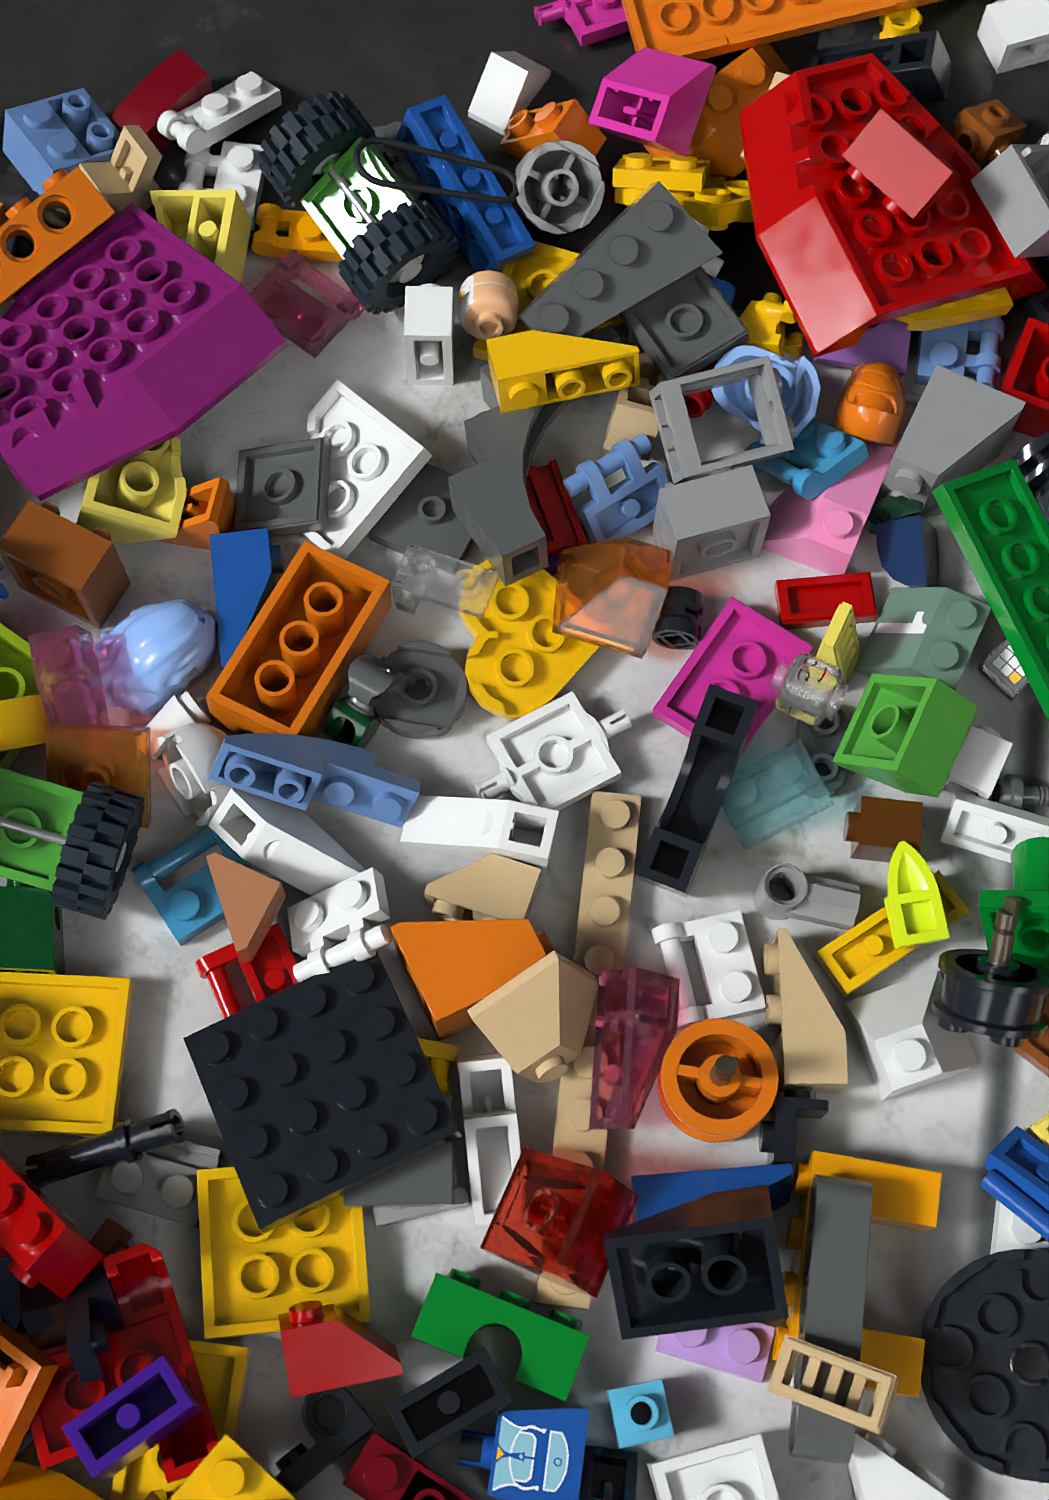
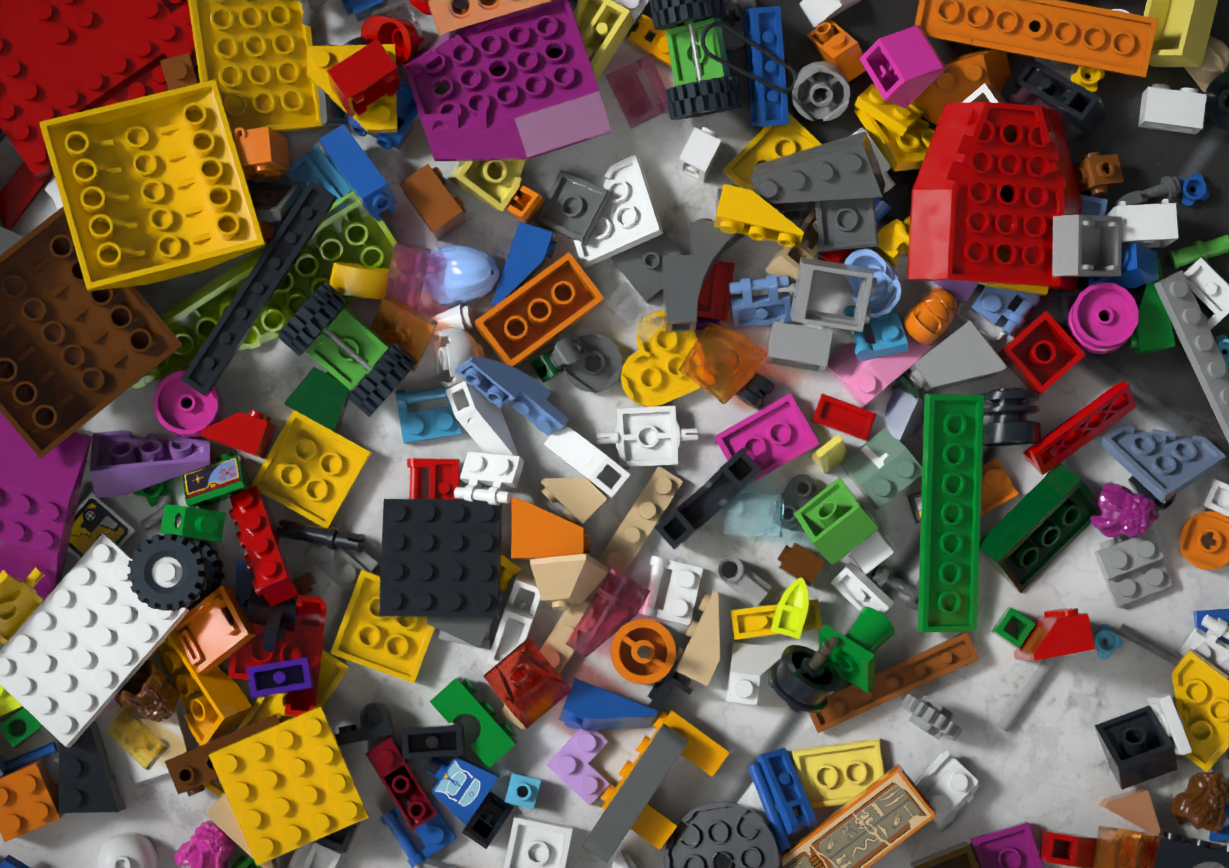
camera: 30 degrees right, 15 degrees up
(248, 902) = (446, 444): nougat slope -> none
(332, 1349) = (389, 689): red slope -> none
(488, 305) = (741, 152): light nougat head -> none
(698, 1266) = (583, 739): black slope -> none
(809, 689) = (800, 469): clear head -> none
(881, 1401) = (616, 842): tan slope -> none
(899, 166) = (1012, 194): slope -> none

